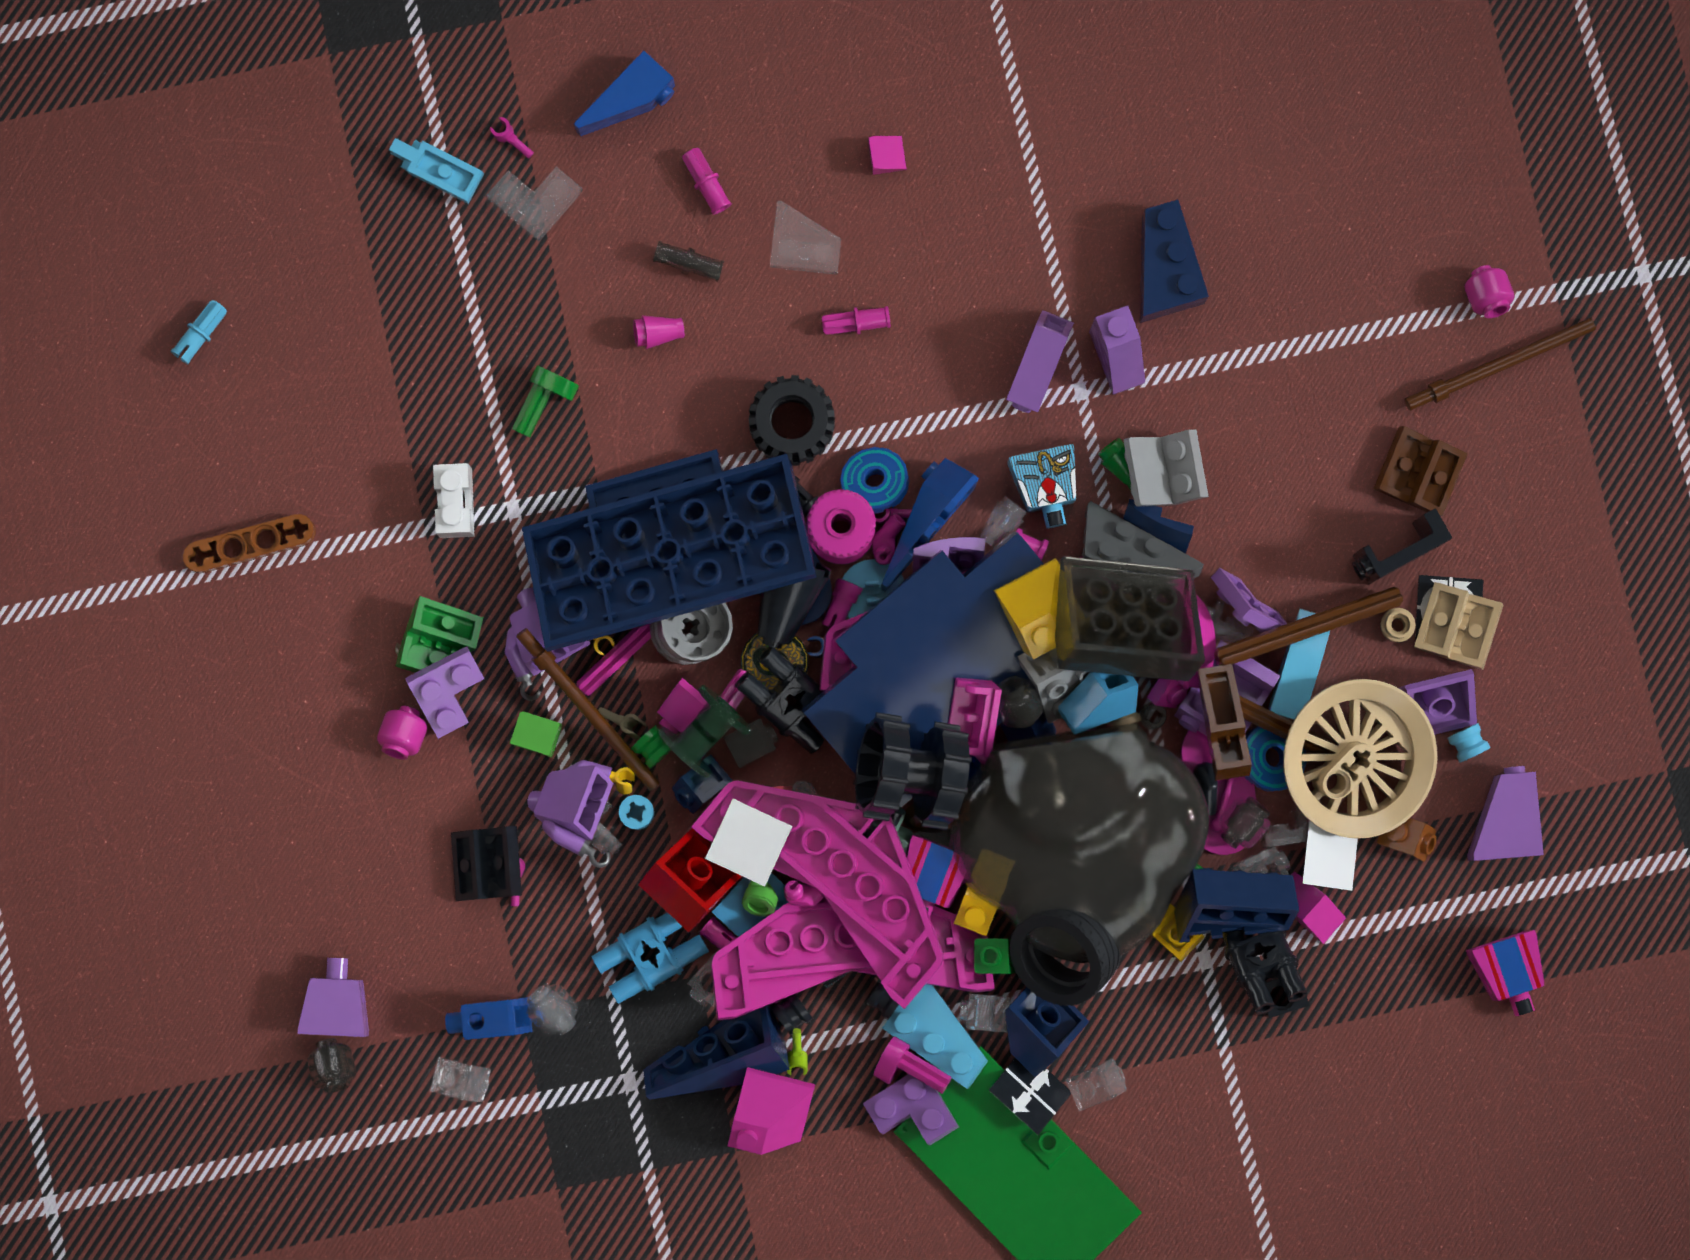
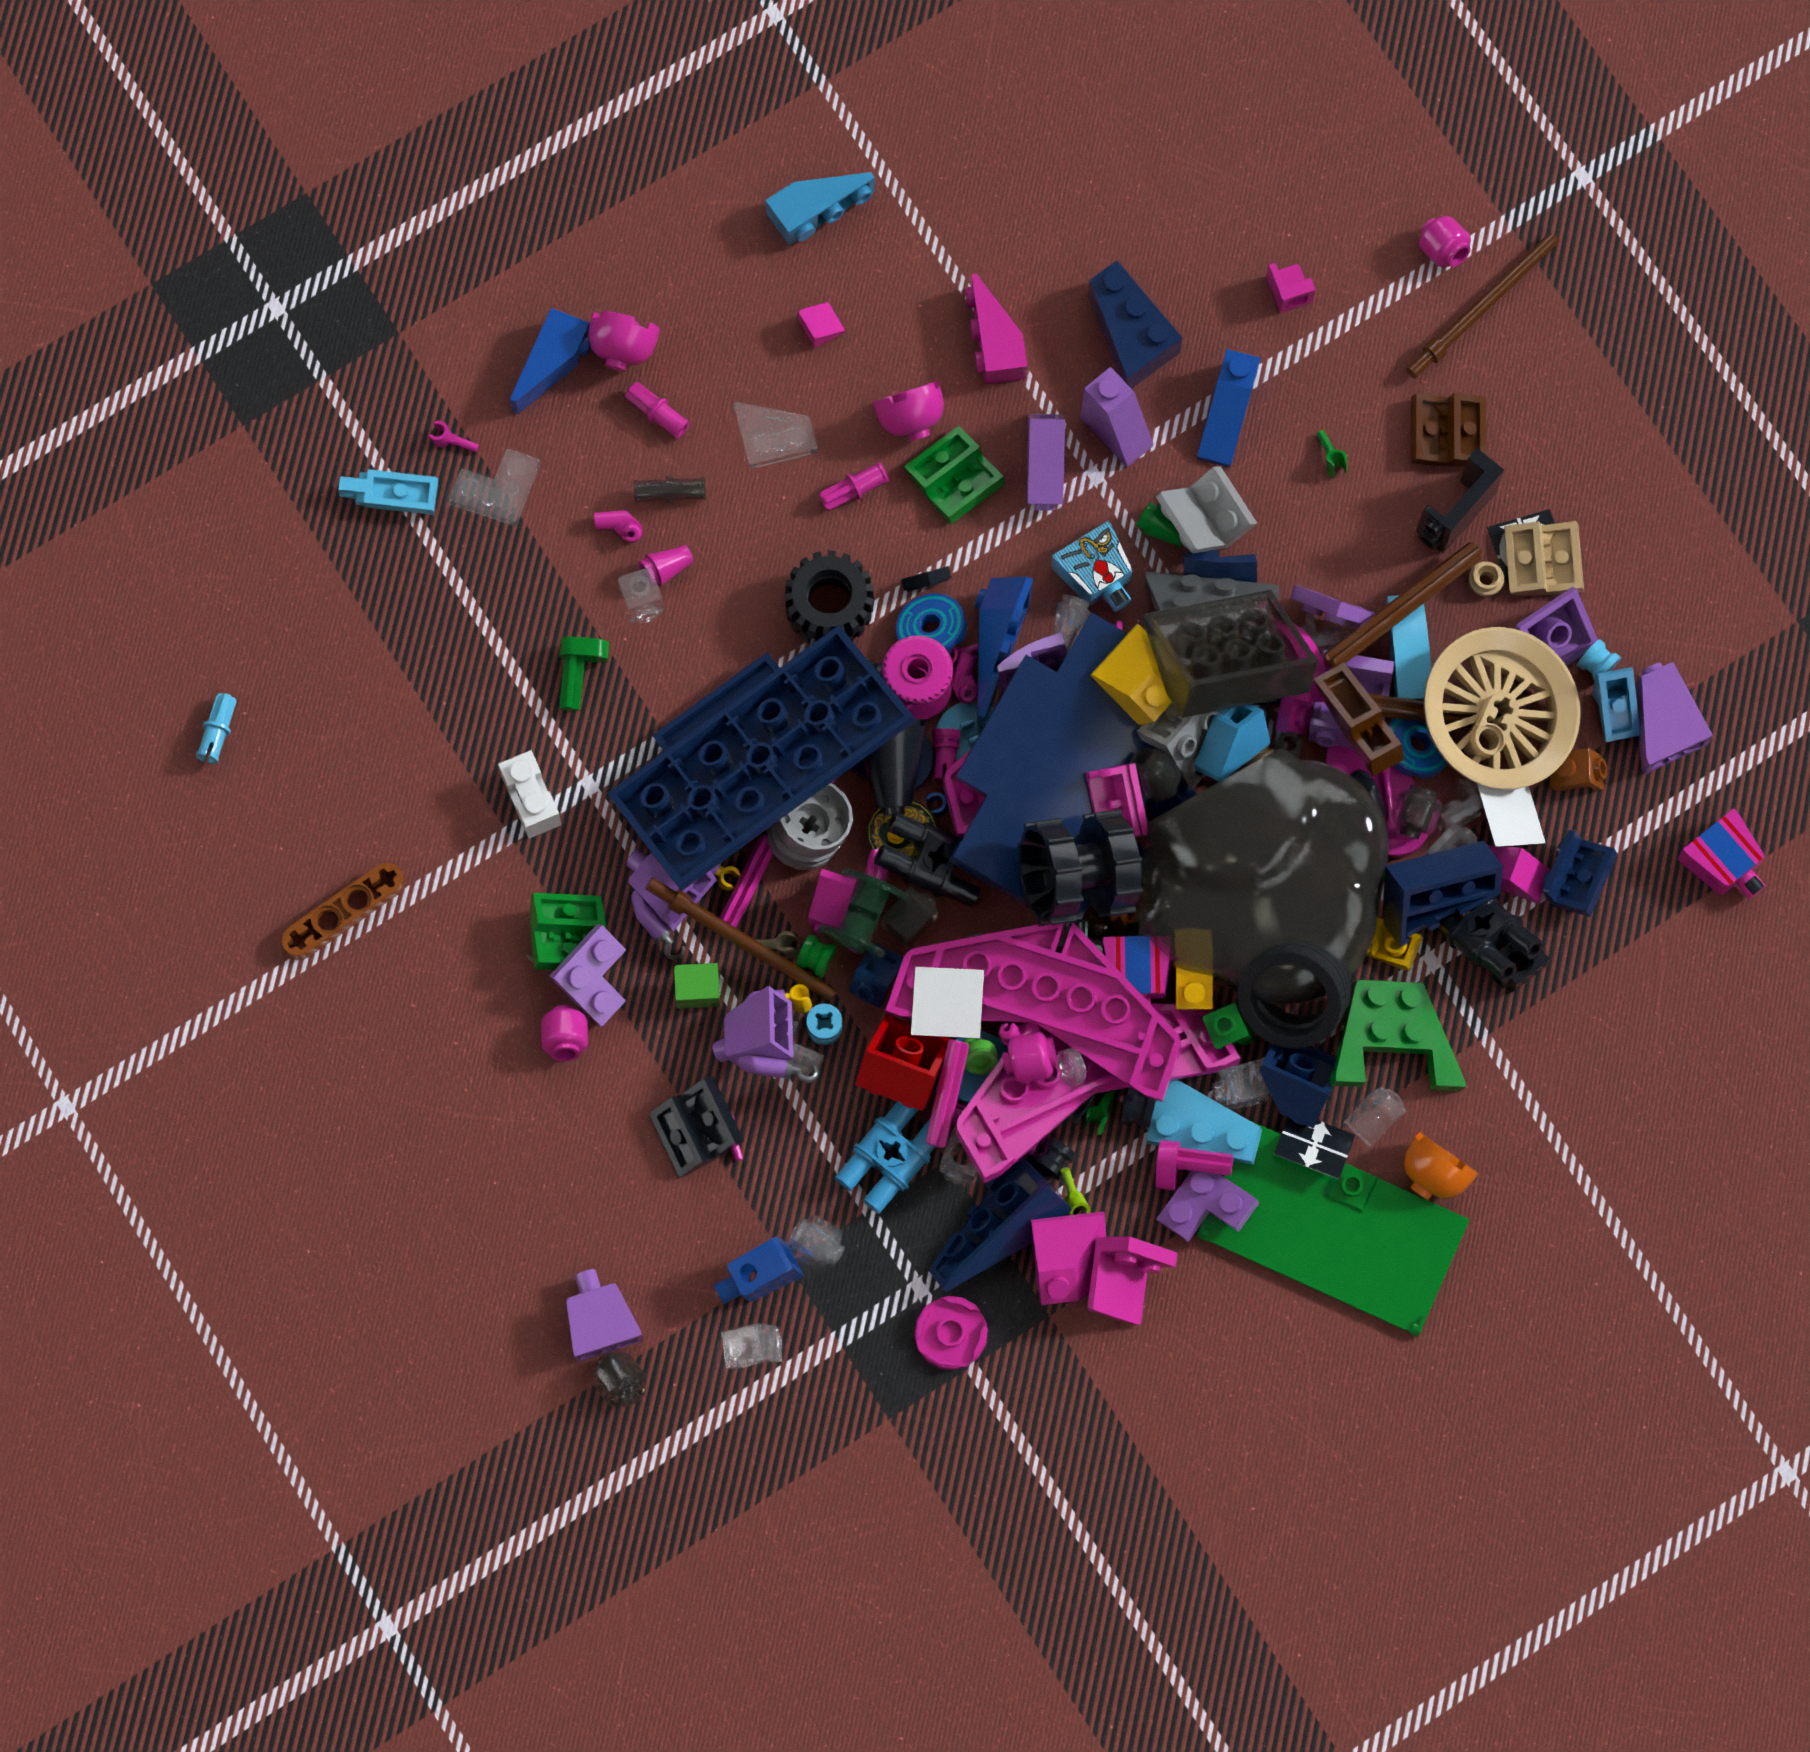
camera: 20 degrees left, 10 degrees down
(623, 353) = (641, 595): none -> clear bracket
(634, 275) = (621, 522): none -> dark pink arm
(641, 1134) = (951, 1333): none -> dark pink tile
(696, 105) = (621, 339): none -> dark pink cylinder
(717, 924) = (947, 1093): none -> dark pink axle
(803, 922) = (1030, 1057): none -> dark pink head
(808, 1148) = (1121, 1276): none -> dark pink bracket
(837, 944) = (1071, 1066): none -> clear tile
(850, 987) = (1099, 1113): none -> green hand
(888, 433) = (926, 579): none -> black tile
(919, 37) = (810, 203): none -> dark azure slope
(934, 269) = (911, 411): none -> dark pink cylinder
(952, 343) = (954, 475): none -> green slope
(1042, 233) = (1000, 341): none -> dark pink slope
(1130, 1157) = (1436, 1169): none -> orange cylinder
(1144, 1004) = (1393, 1020): none -> green wing
(1226, 376) = (1228, 408): none -> blue slope
(1304, 457) = (1334, 457): none -> green hand
(1329, 280) = (1289, 287): none -> dark pink panel
(1369, 934) = (1578, 874): none -> dark blue bracket
(1468, 791) = (1617, 704): none -> dark azure slope

